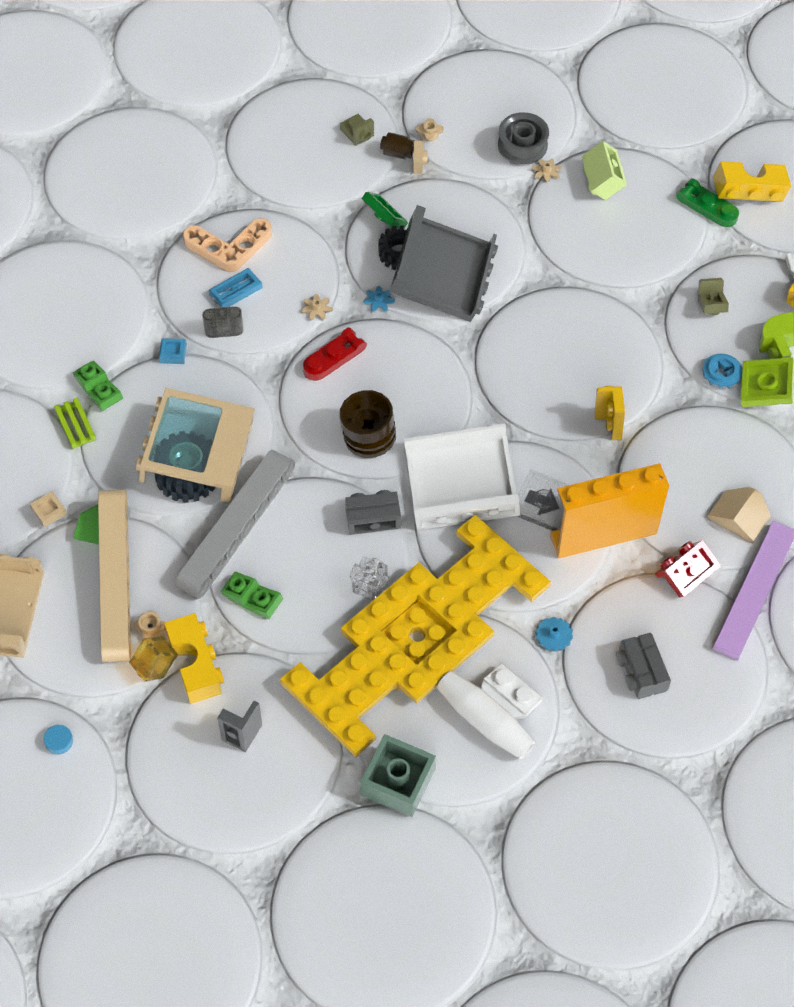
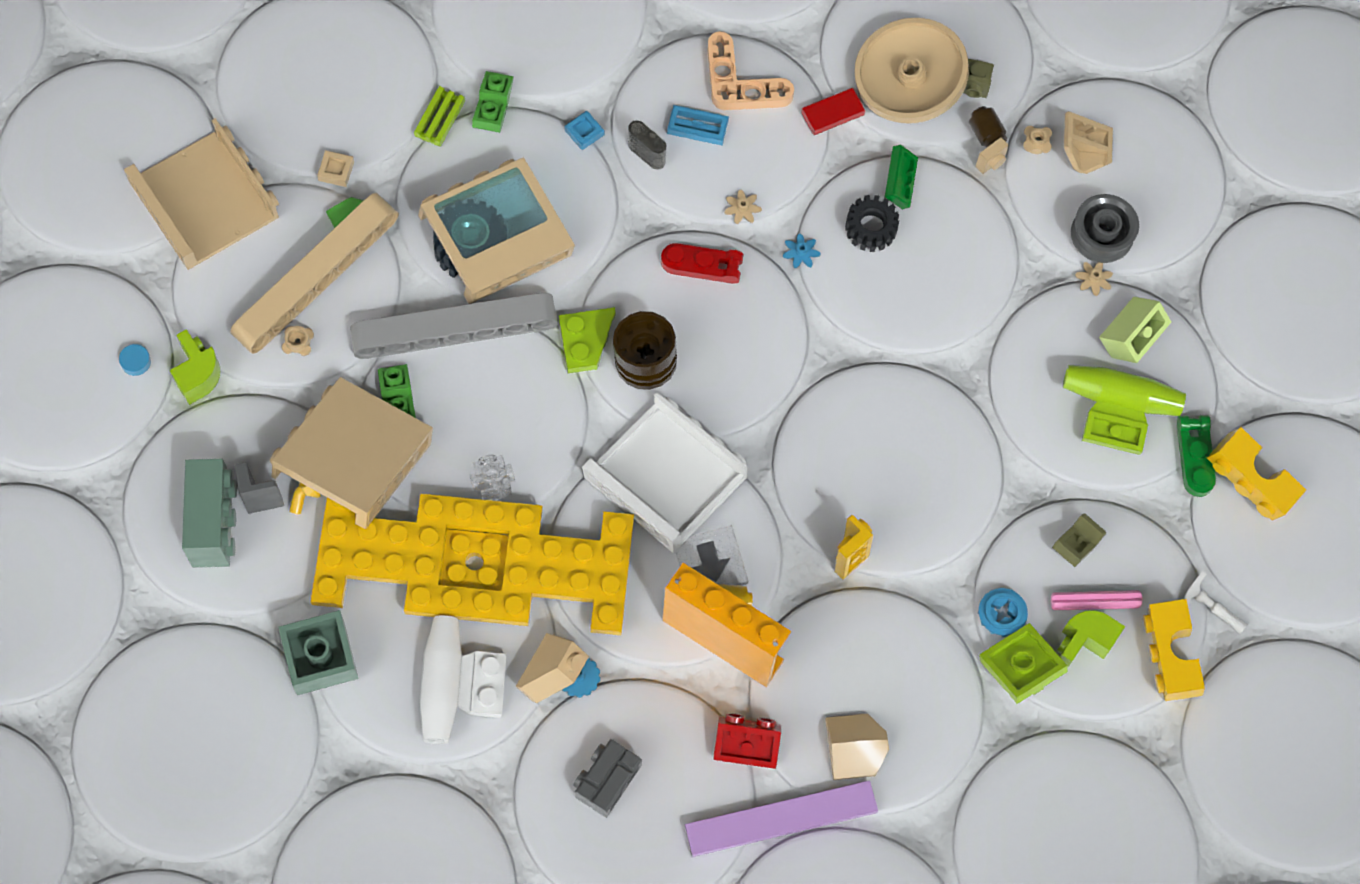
camera: 45 degrees right, 10 degrees up
(111, 700) = (200, 372): none -> lime brick
(153, 658) = (262, 369): clear yellow brick -> none
(200, 678) = (310, 379): yellow arch -> none
(229, 768) = (208, 513): none -> sand green brick
(265, 695) = (299, 496): none -> yellow plate
(269, 642) = (353, 449): none -> tan panel
(302, 214) = (833, 111): none -> red tile
(320, 456) = (585, 337): none -> lime wing
(321, 151) = (911, 70): none -> tan dish
(373, 512) = (563, 427): dark grey brick -> none
(443, 267) = (881, 276): dark grey panel -> none
(458, 107) = (1087, 143): none -> tan slope
(539, 639) = (552, 668): none -> tan slope
(644, 212) = (1121, 405): none -> lime plate
(757, 319) = (1096, 600): none -> bright pink axle

